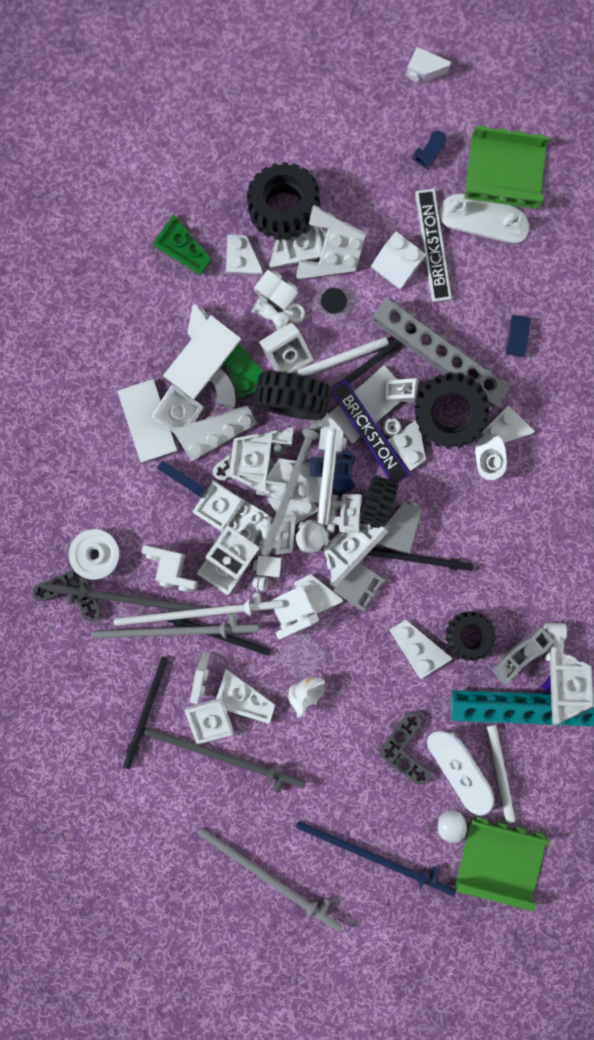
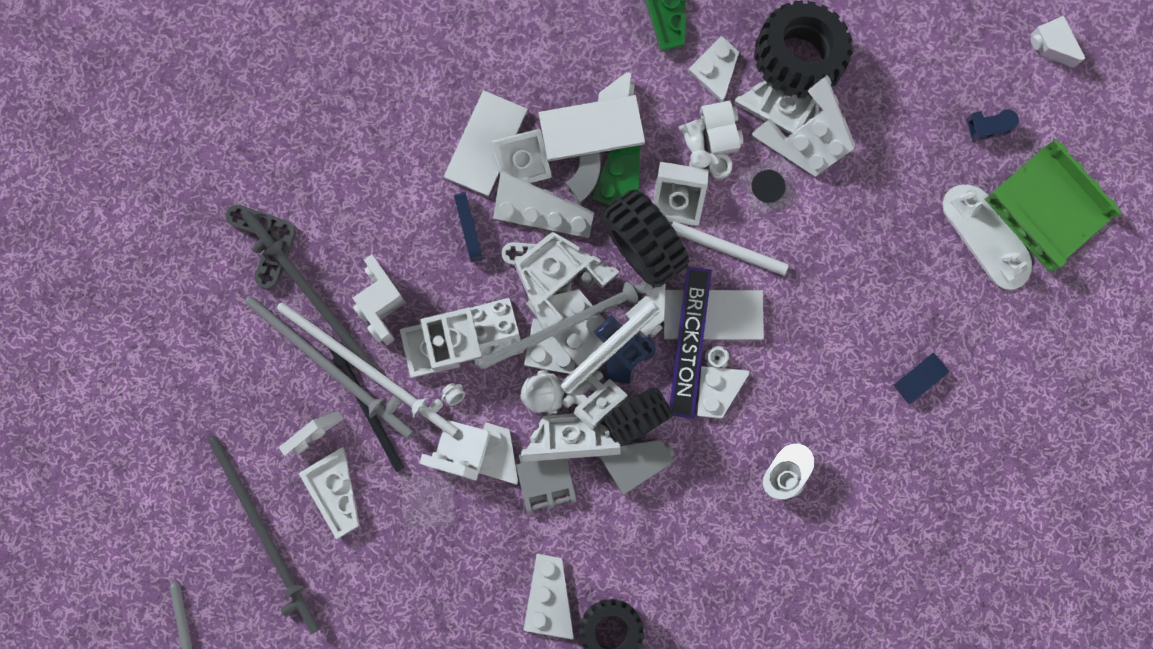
camera: 35 degrees right, 5 degrees down
(81, 550) = (308, 212): white gear -> none
(133, 748) = (185, 443): black bar -> none
(209, 721) = (281, 483): white plate -> none
(218, 506) = (479, 284): white plate -> none
(267, 566) = (474, 383): white brick -> none
(285, 536) = (515, 368): white plate -> none
(306, 694) = (398, 542): white hair -> none
(374, 360) = (809, 282): black bar -> none
(398, 260) = (866, 202): white slope -> none
(401, 390) = (757, 328): white slope -> none
(429, 352) = (823, 340): light grey brick -> none
(433, 245) = (913, 218): tile -> none
(453, 564) = (657, 544): black bar -> none
(458, 435) = (756, 397): black tyre -> none
(508, 426) = (833, 458): white wing -> none

